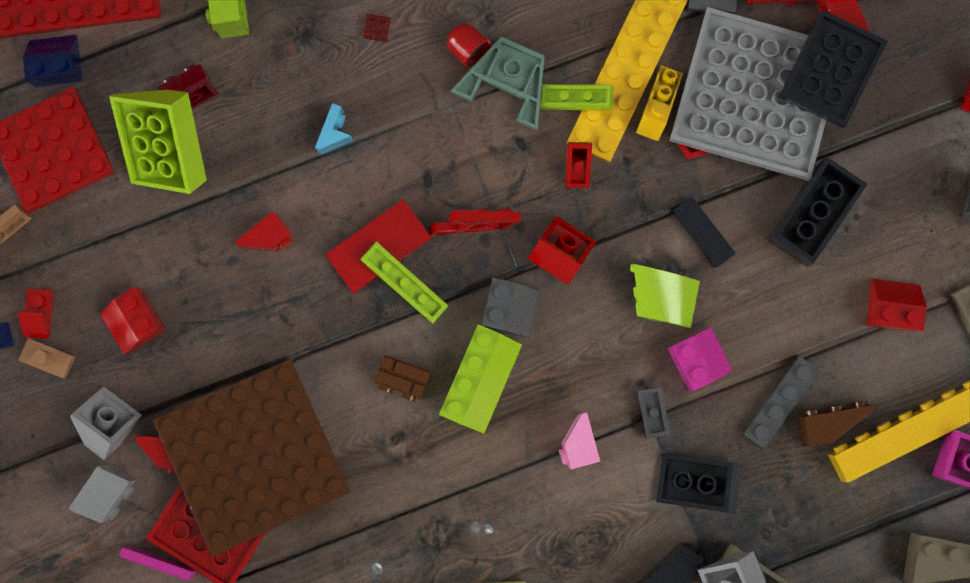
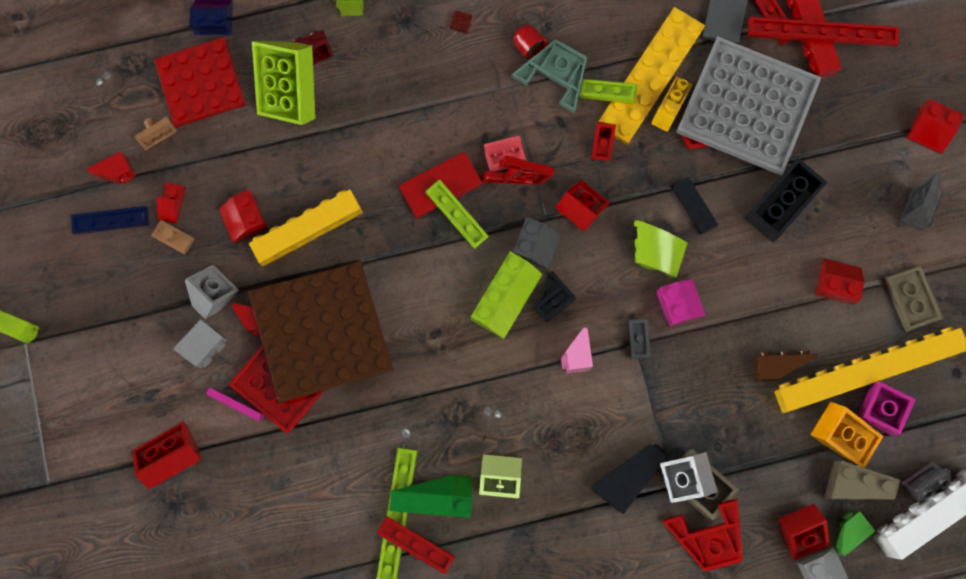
camera: 10 degrees right, 5 degrees down
(214, 325) = (305, 228): none -> yellow brick
(267, 235) = (355, 165): red slope -> none
(330, 137) = (414, 98): medium azure slope -> none
(402, 377) = (446, 286): reddish brown brick -> none
(454, 195) = (497, 150): none -> coral bracket
(539, 374) = (553, 298): none -> black wing
(699, 483) = (669, 398): black slope -> none
(780, 402) = (741, 345): dark grey plate -> none
(833, 69) = (809, 92): black plate -> none
(923, 499) = (846, 434): none -> light orange slope

